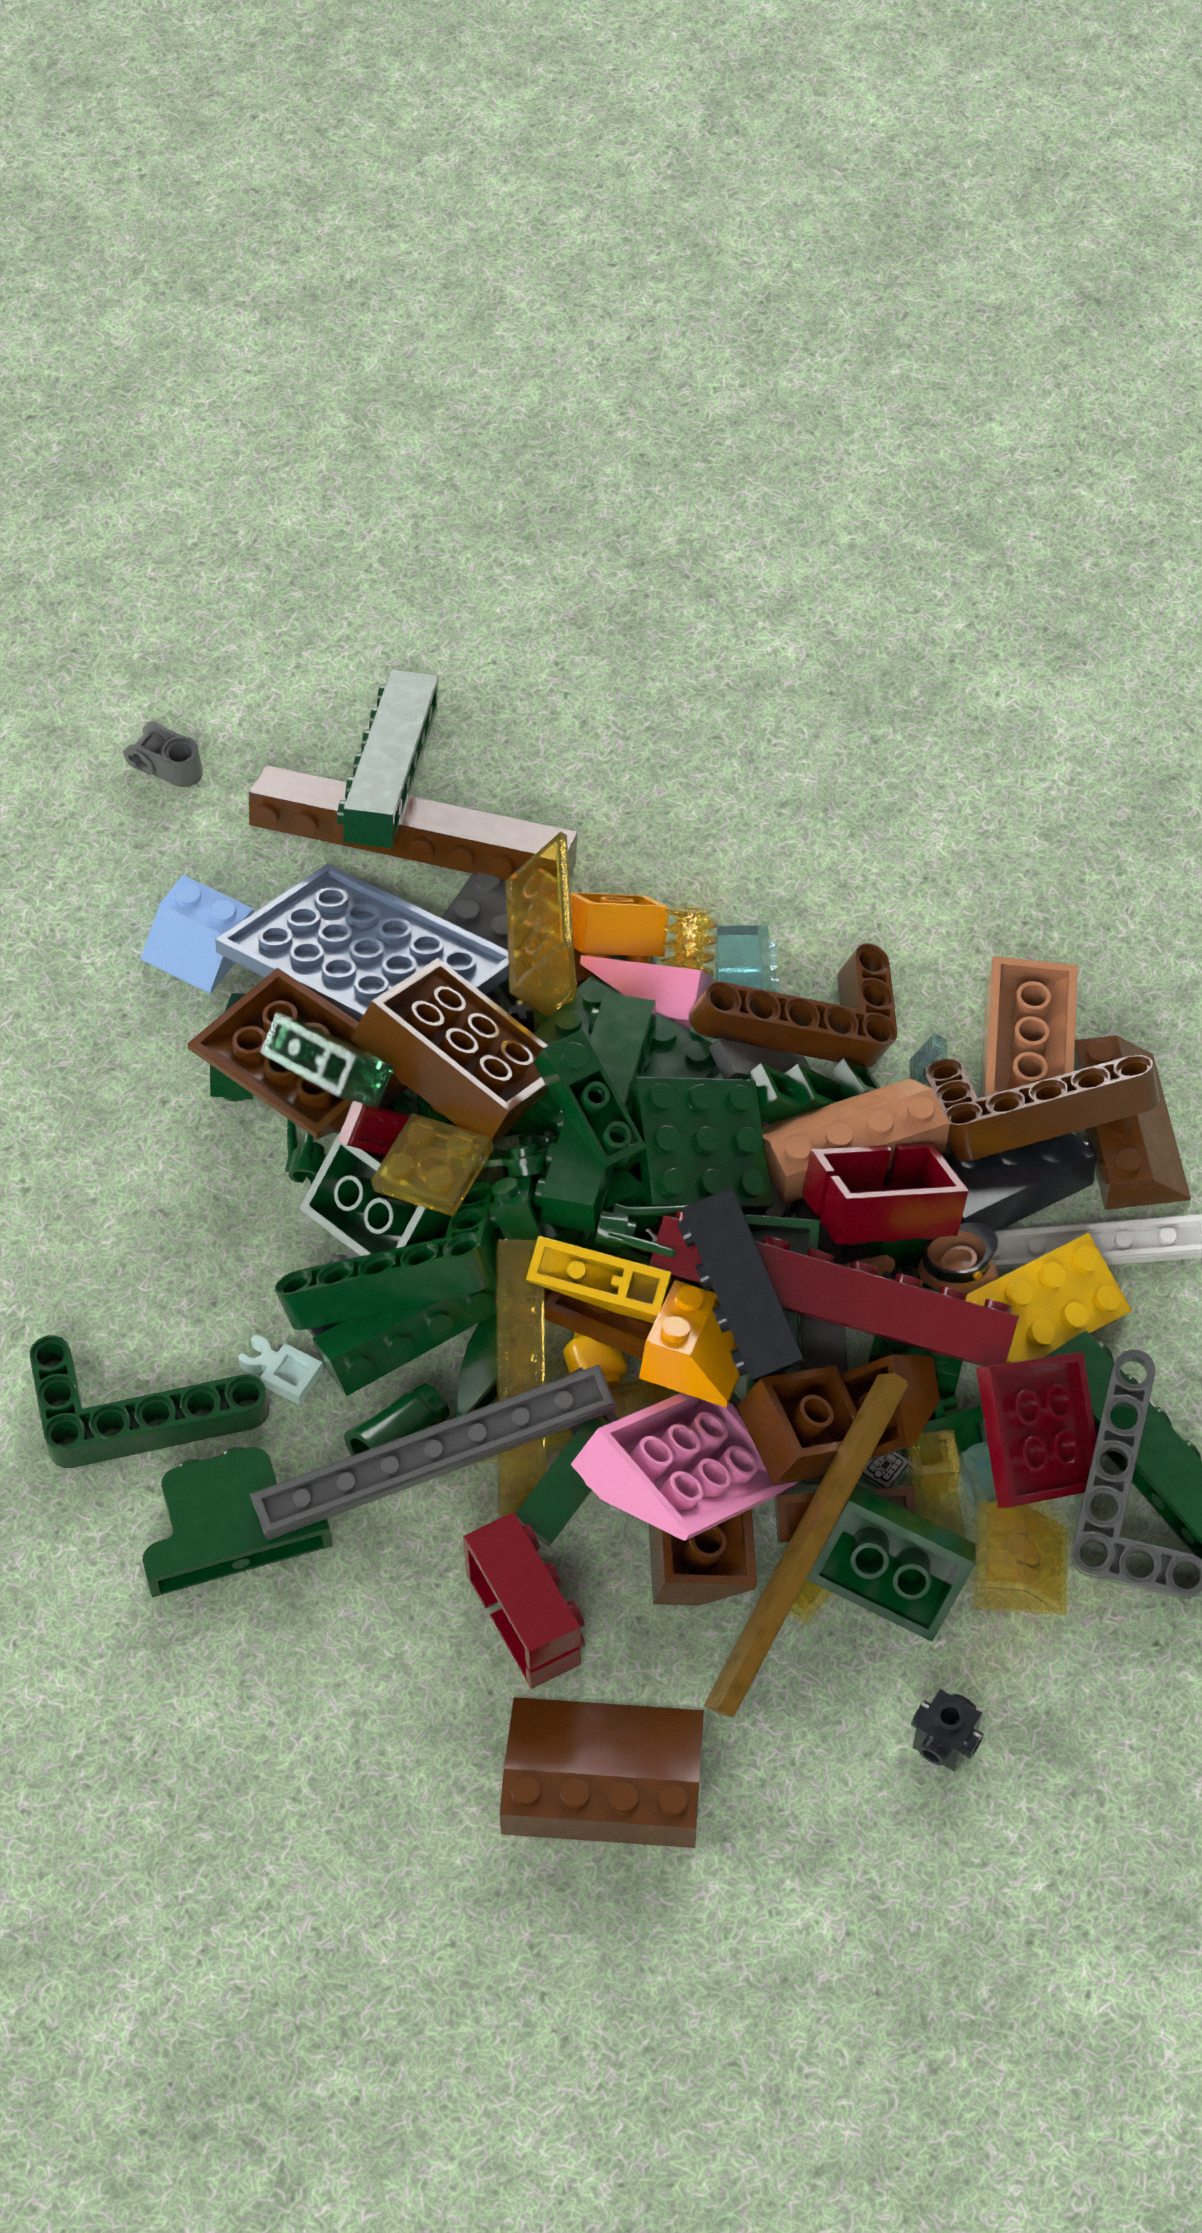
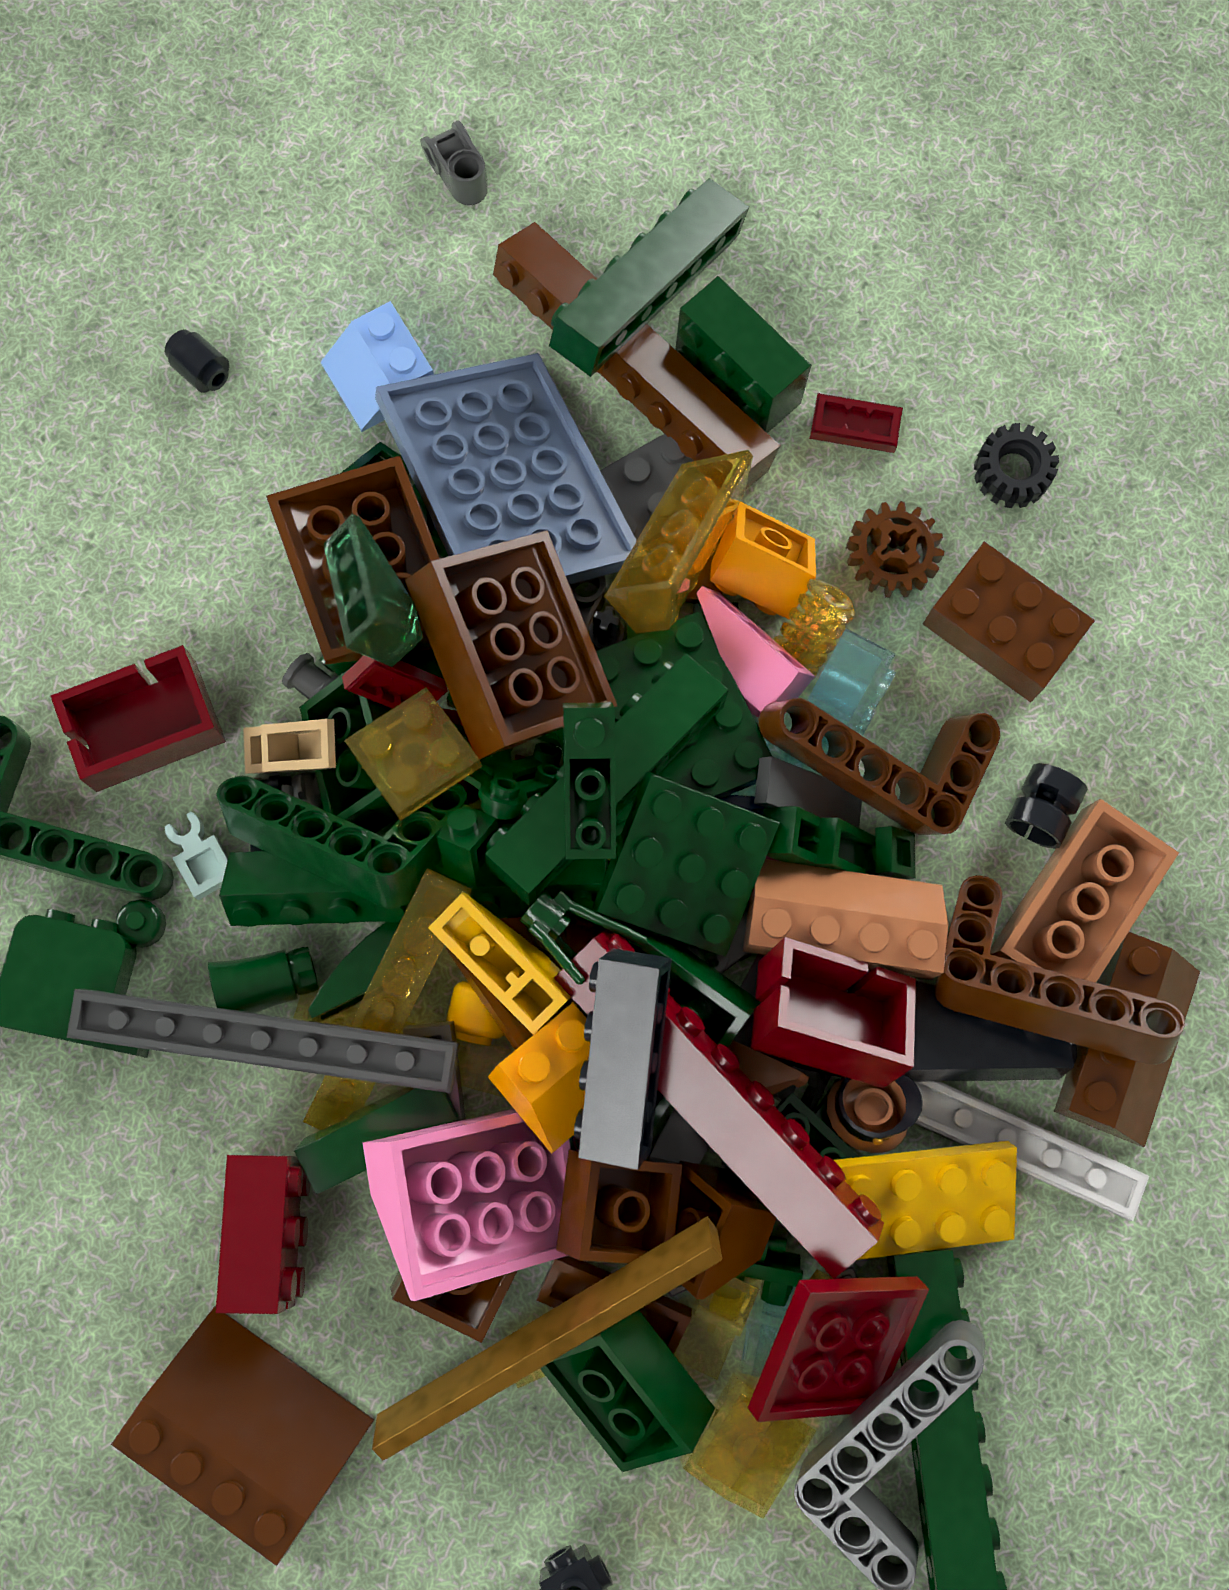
camera: 25 degrees right, 20 degrees up
(34, 1002) = (197, 360): none -> black brick
(168, 1298) = (137, 723): none -> dark red piece
(264, 1436) = (141, 923): none -> dark green piece
(287, 1191) = (306, 676): none -> dark grey bush
(319, 1227) = (290, 747): none -> tan slope
(503, 778) = (741, 354): none -> dark green brick
(625, 795) = (856, 423): none -> dark red plate
(723, 868) = (895, 530): none -> reddish brown gear
(780, 748) = (1032, 449): none -> black tyre
(840, 877) = (1008, 622): none -> reddish brown brick
(931, 1051) = (980, 863): clear light blue tile -> none
(956, 990) = (1048, 801): none -> black wheel

